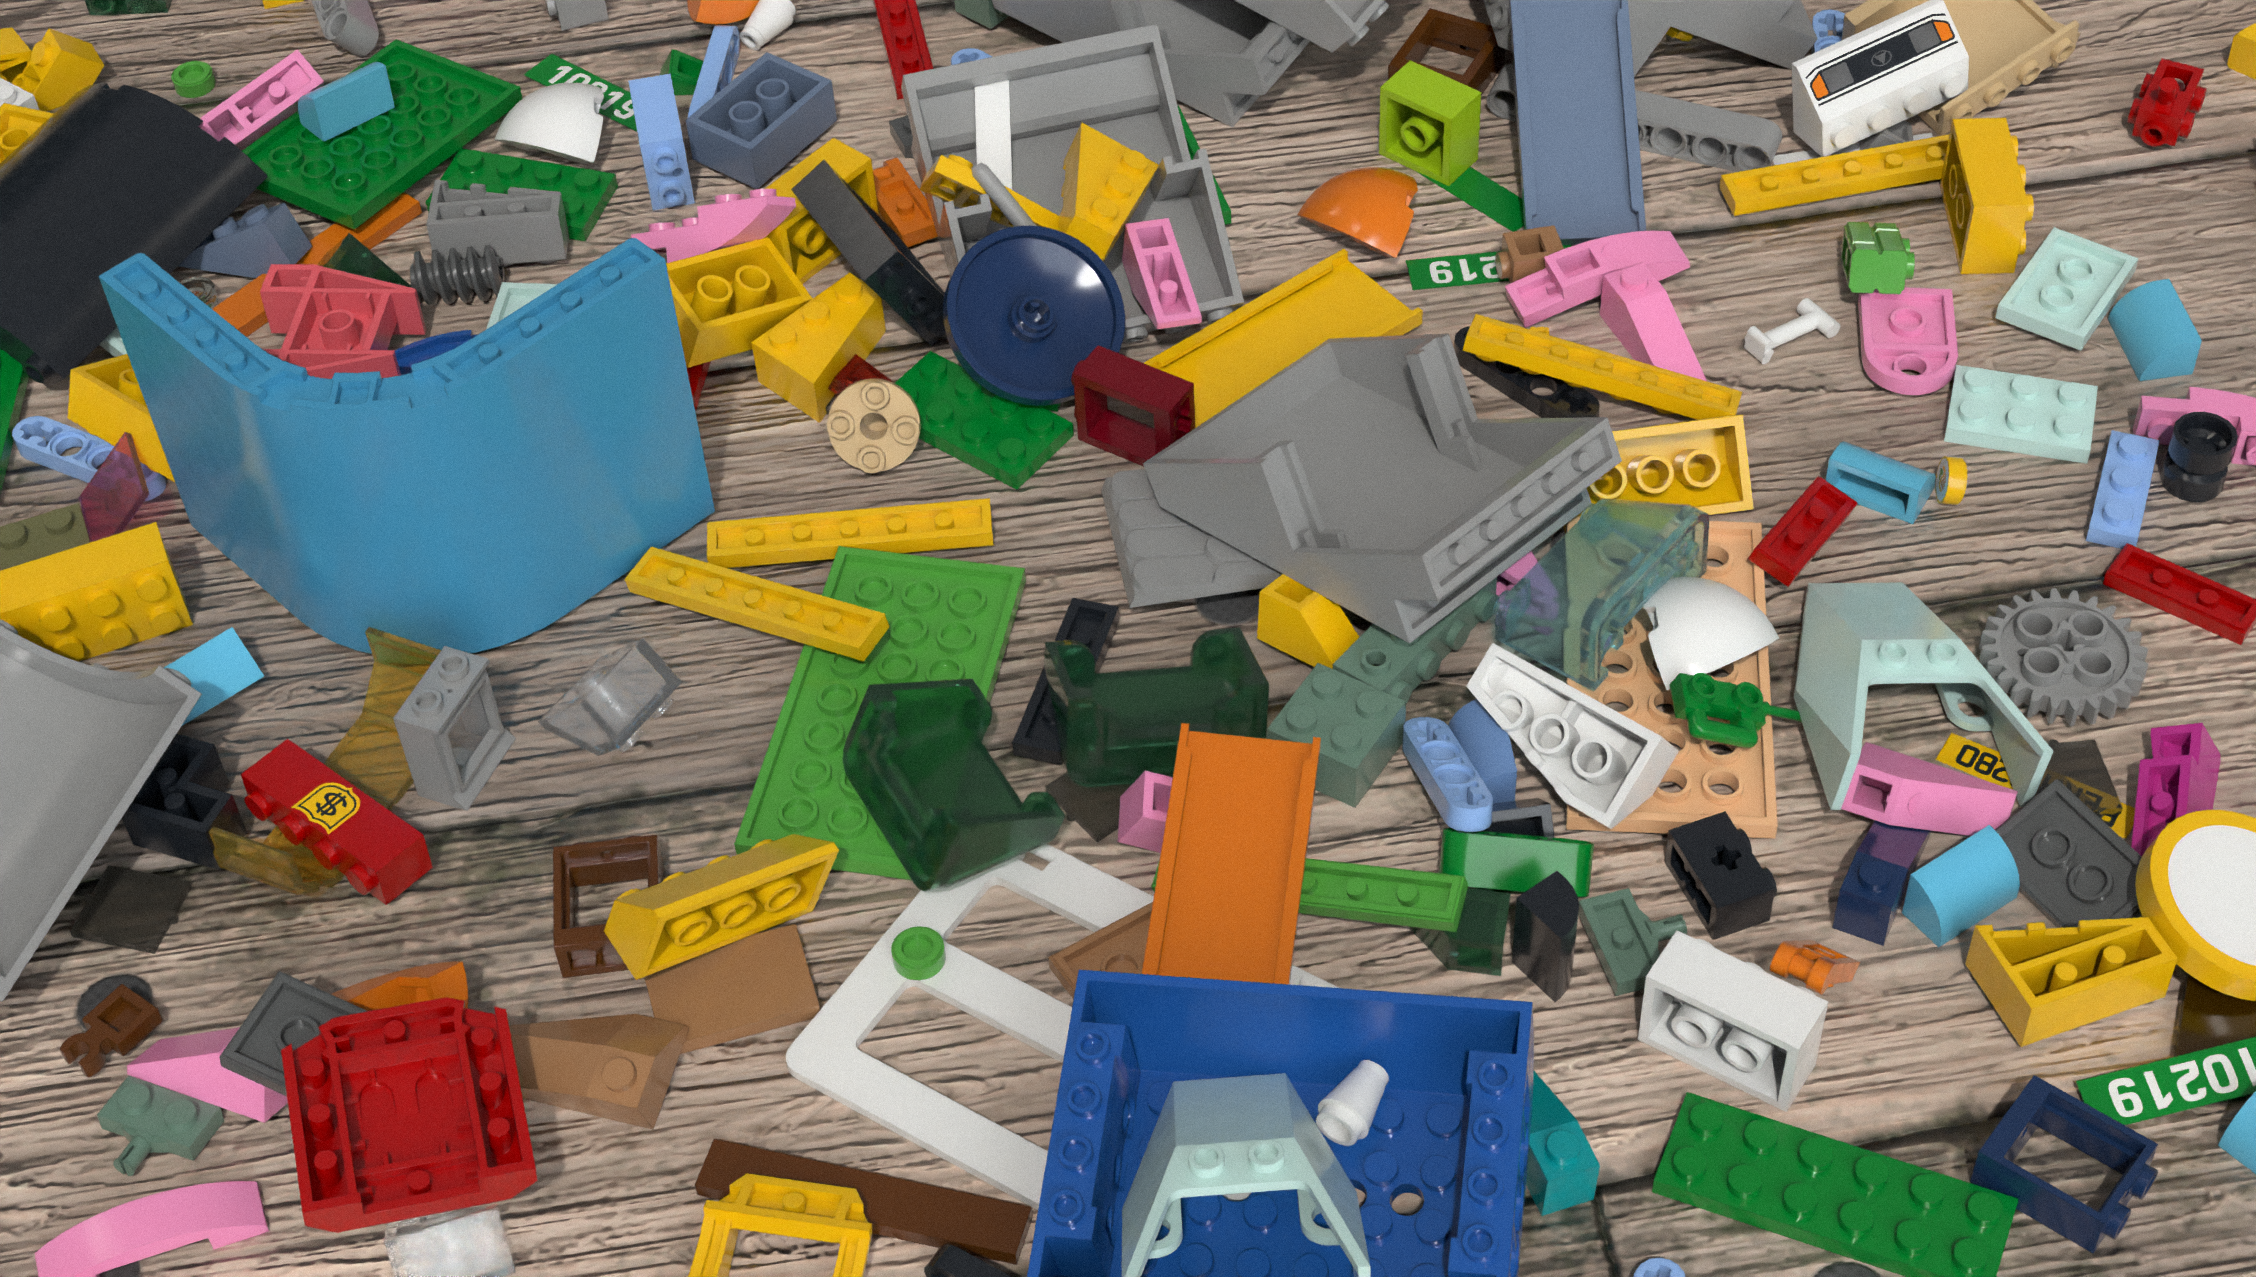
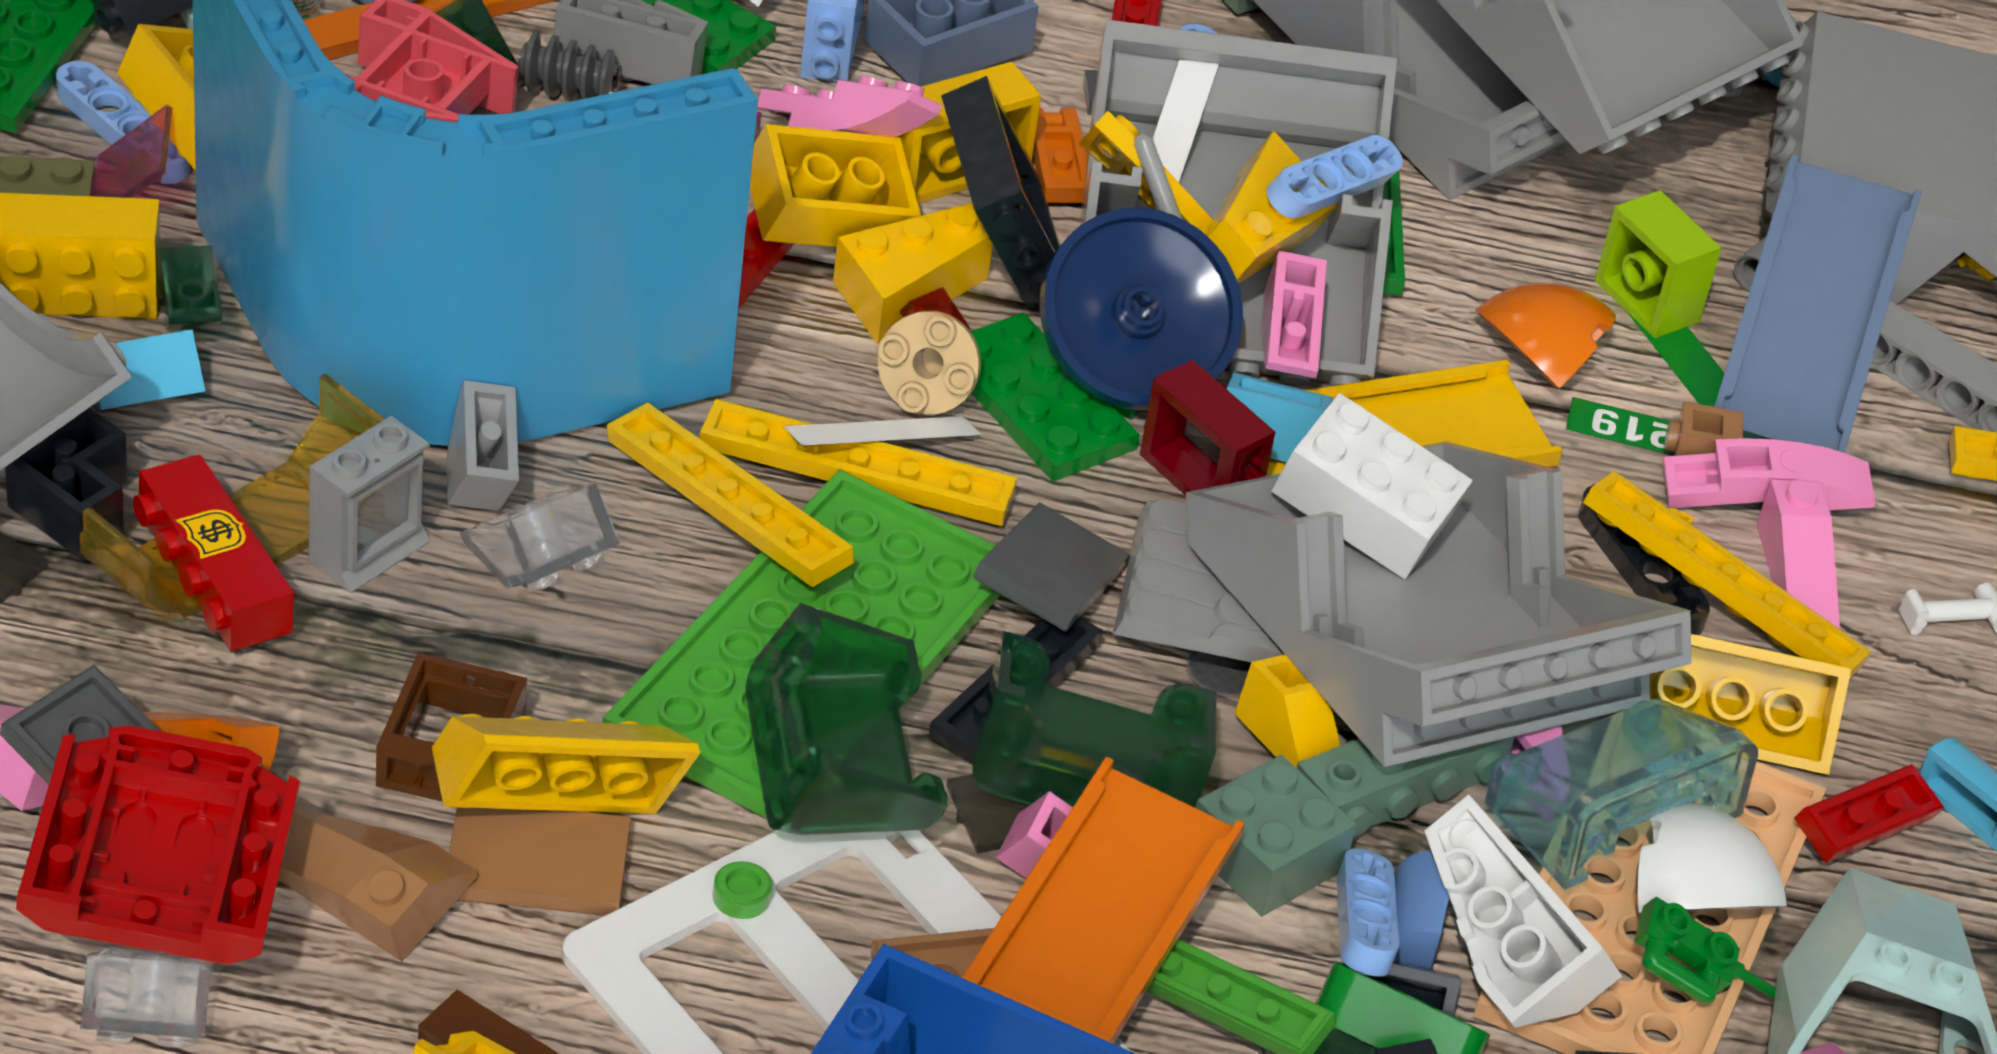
camera: 10 degrees right, 5 degrees down
(212, 588) = (189, 287): none -> clear green slope
(529, 640) = (483, 447): none -> light grey slope
(858, 498) = (882, 430): none -> white sticker
(1053, 567) = (1051, 566): none -> dark grey tile
(1144, 140) = (1332, 172): none -> light blue beam
(1190, 358) = (1283, 408): none -> medium azure brick
(1295, 396) = (1380, 480): none -> white brick
(1452, 34) = (1730, 186): reddish brown window -> none

